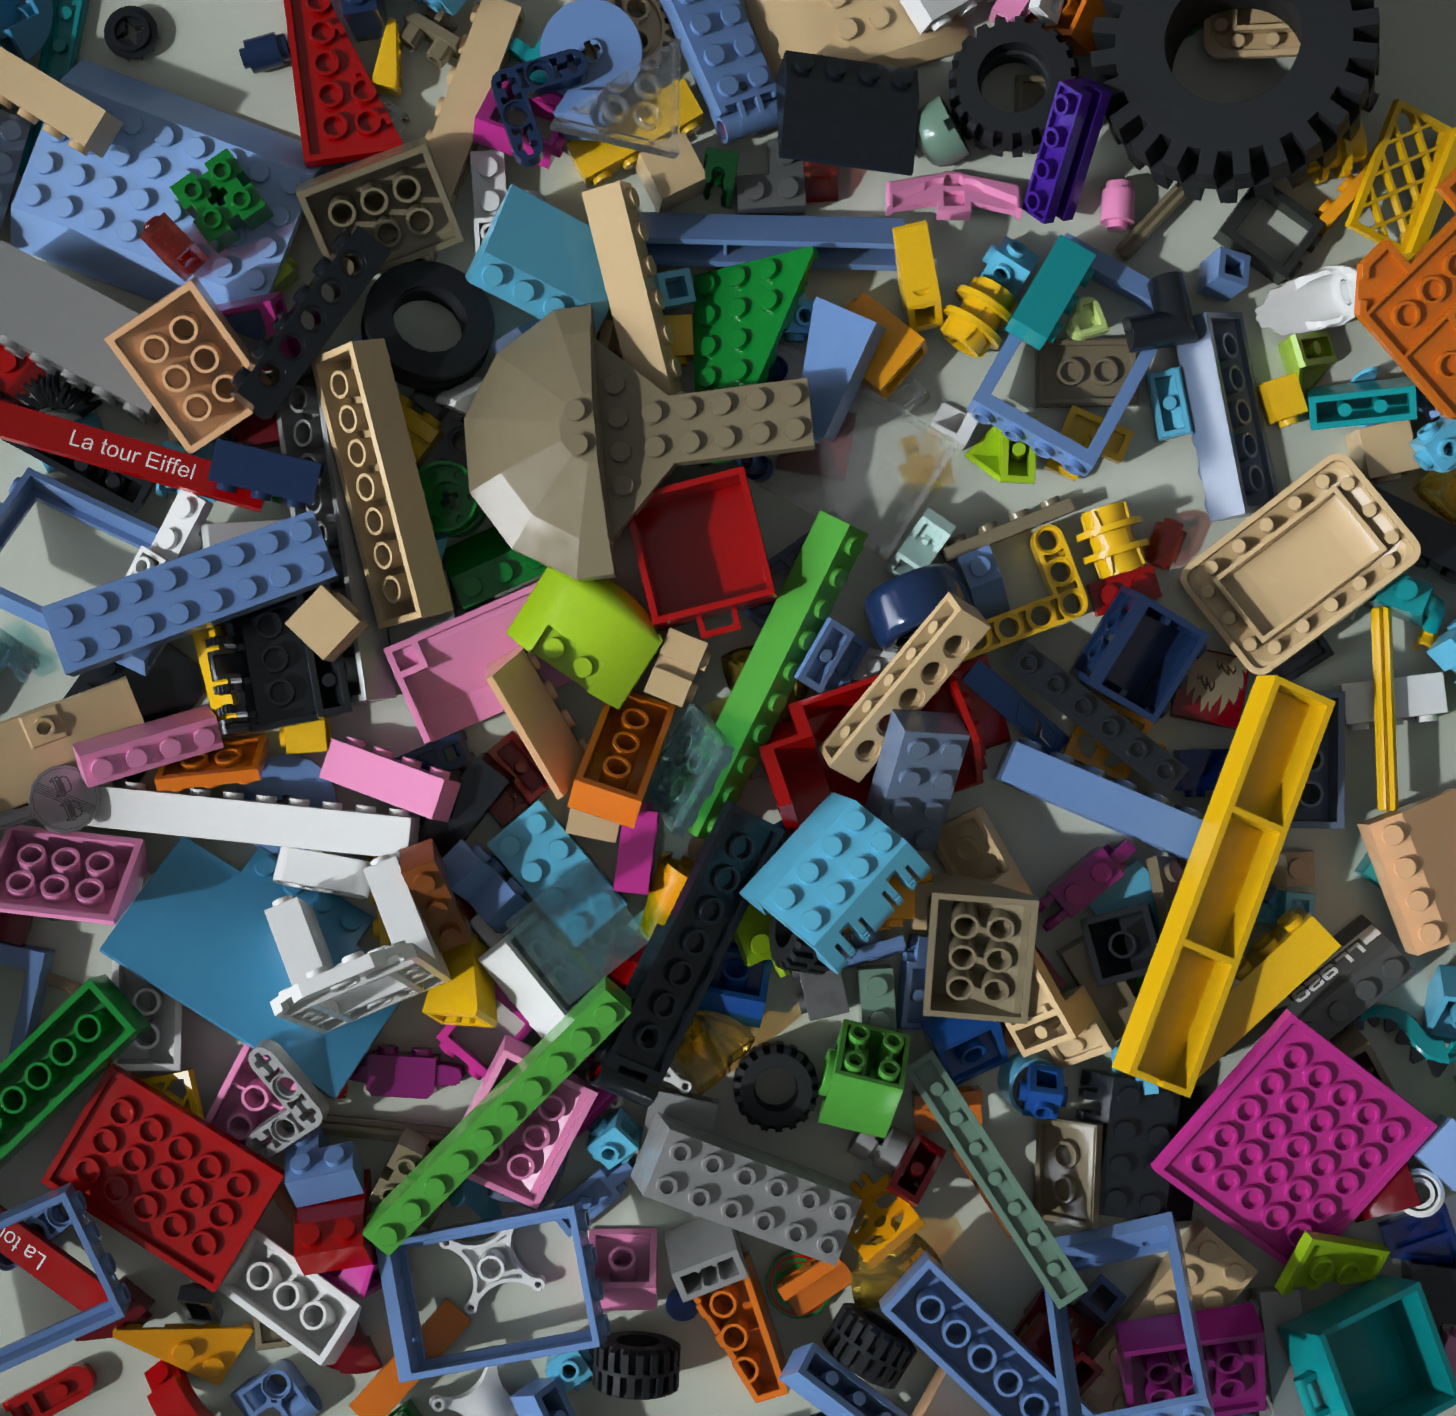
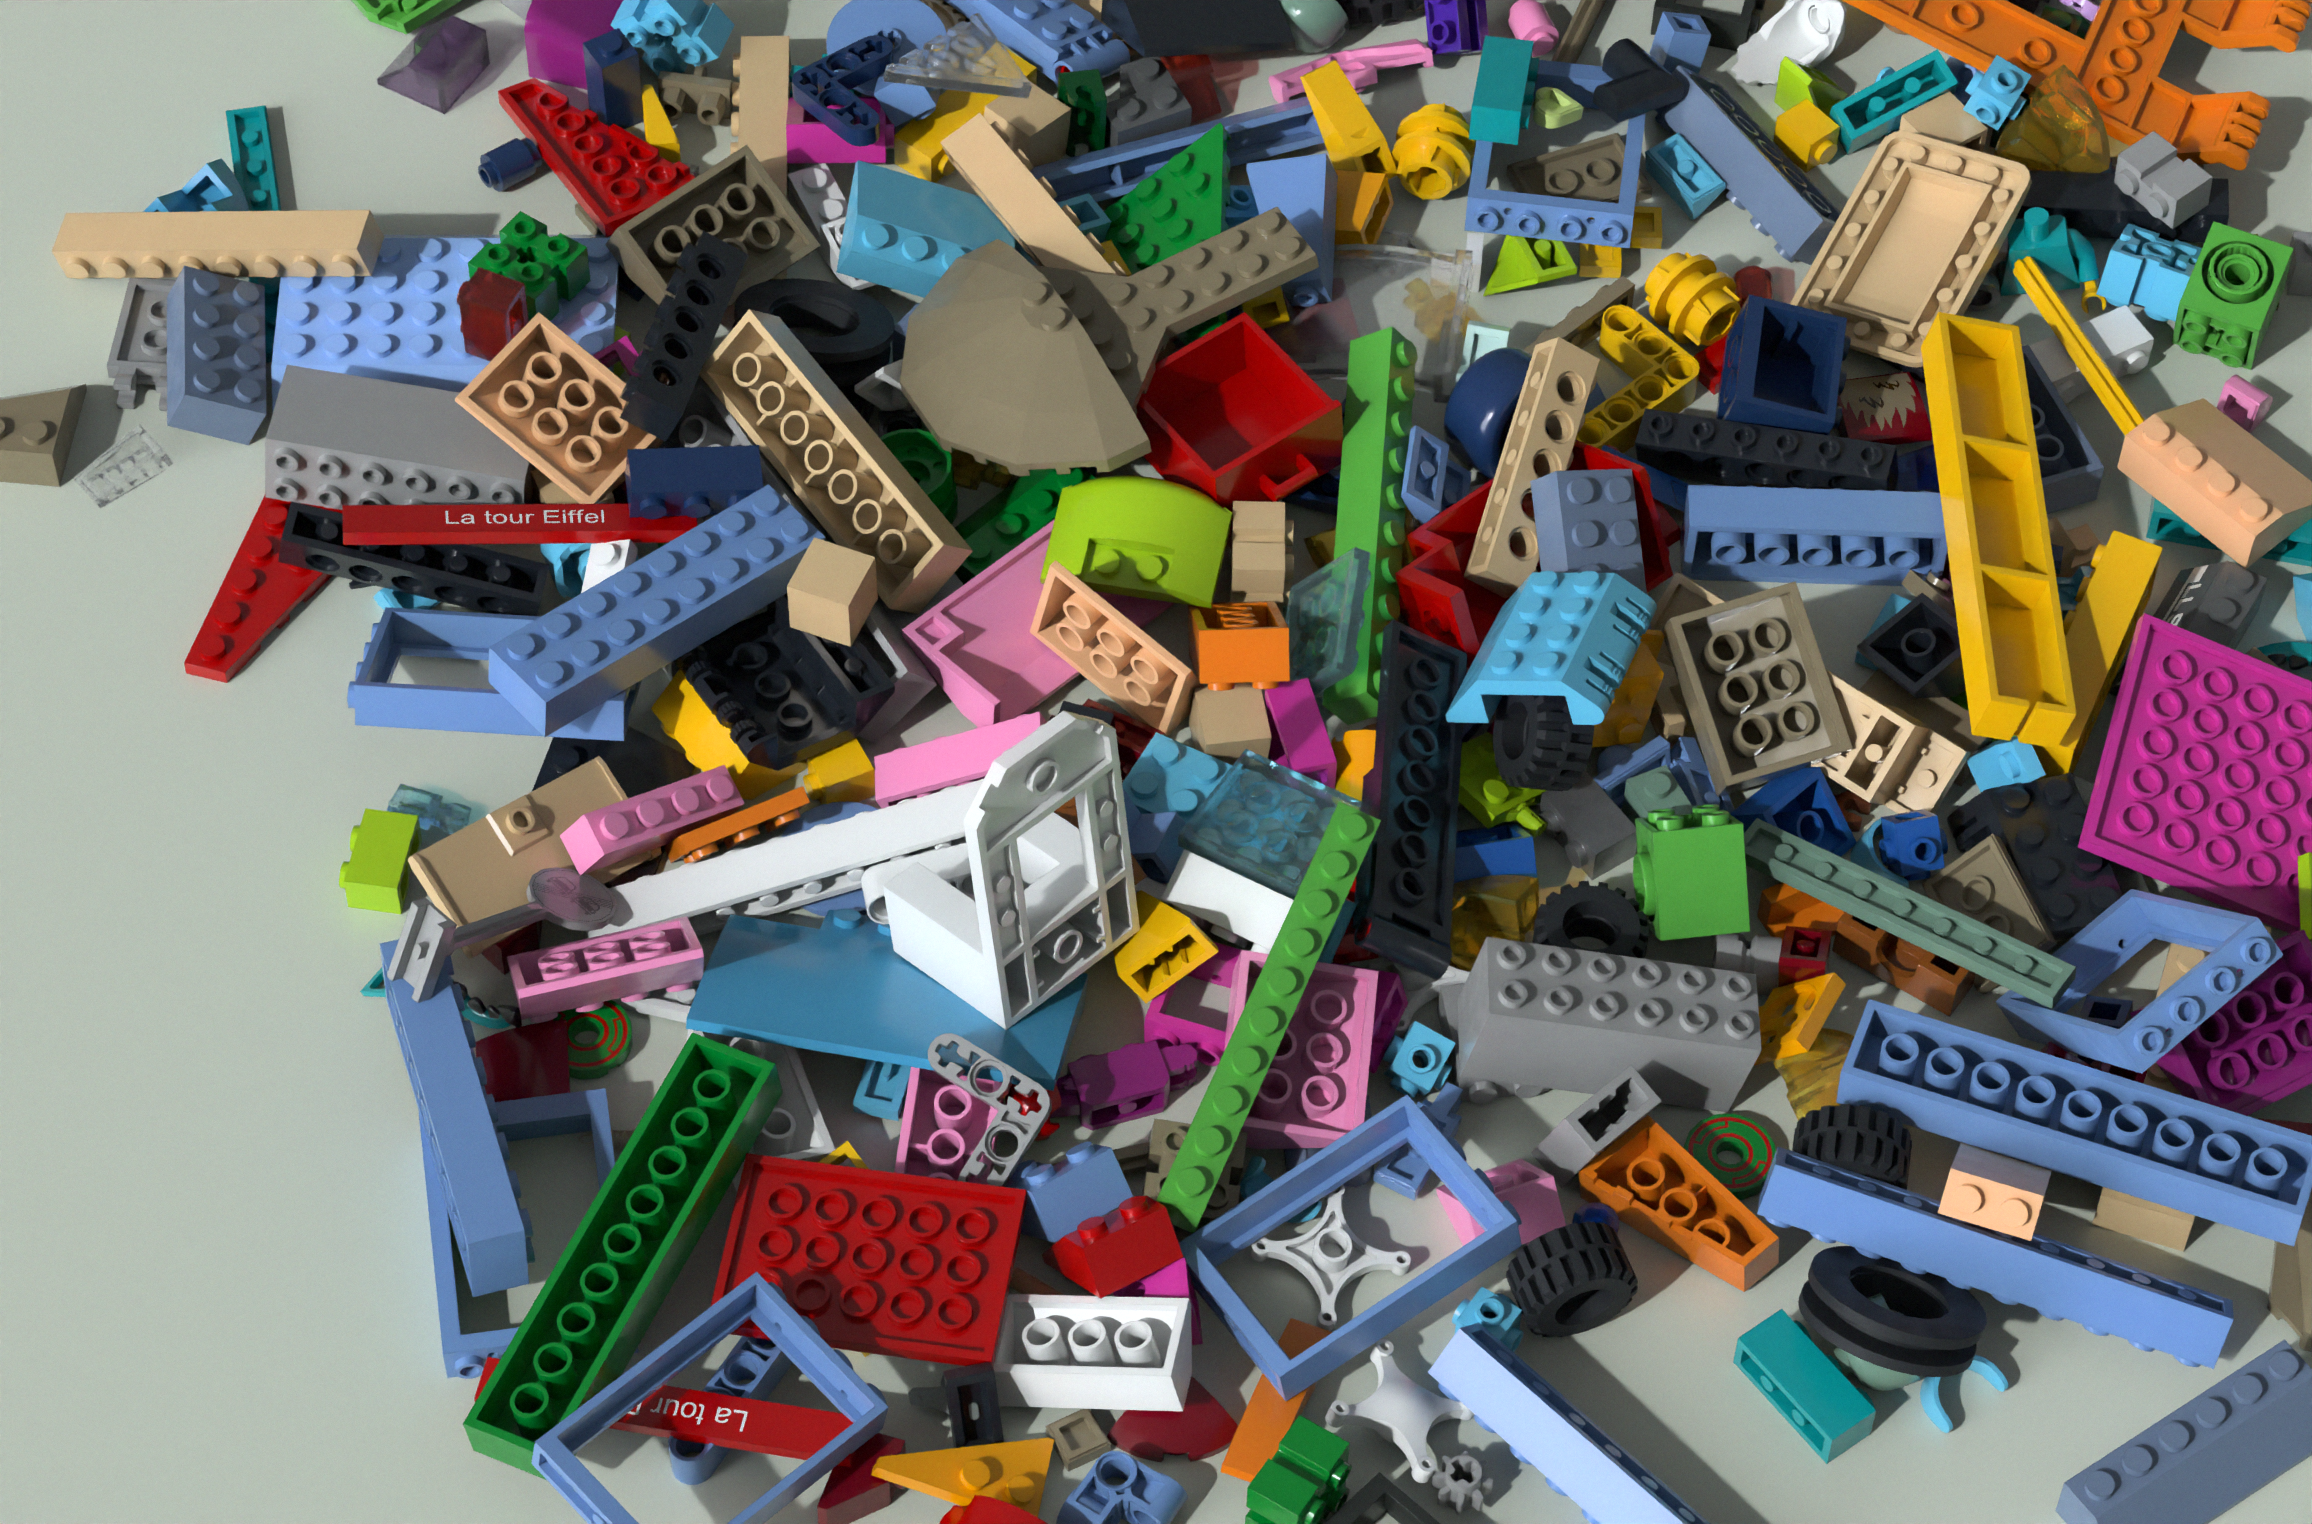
camera: 25 degrees left, 35 degrees down
(117, 27) = (346, 182): black gear -> none
(813, 1284) = (1747, 1131): orange panel -> none
(1009, 264) = (1442, 87): medium azure brick -> none
(1085, 881) = (1848, 618): magenta hinge -> none

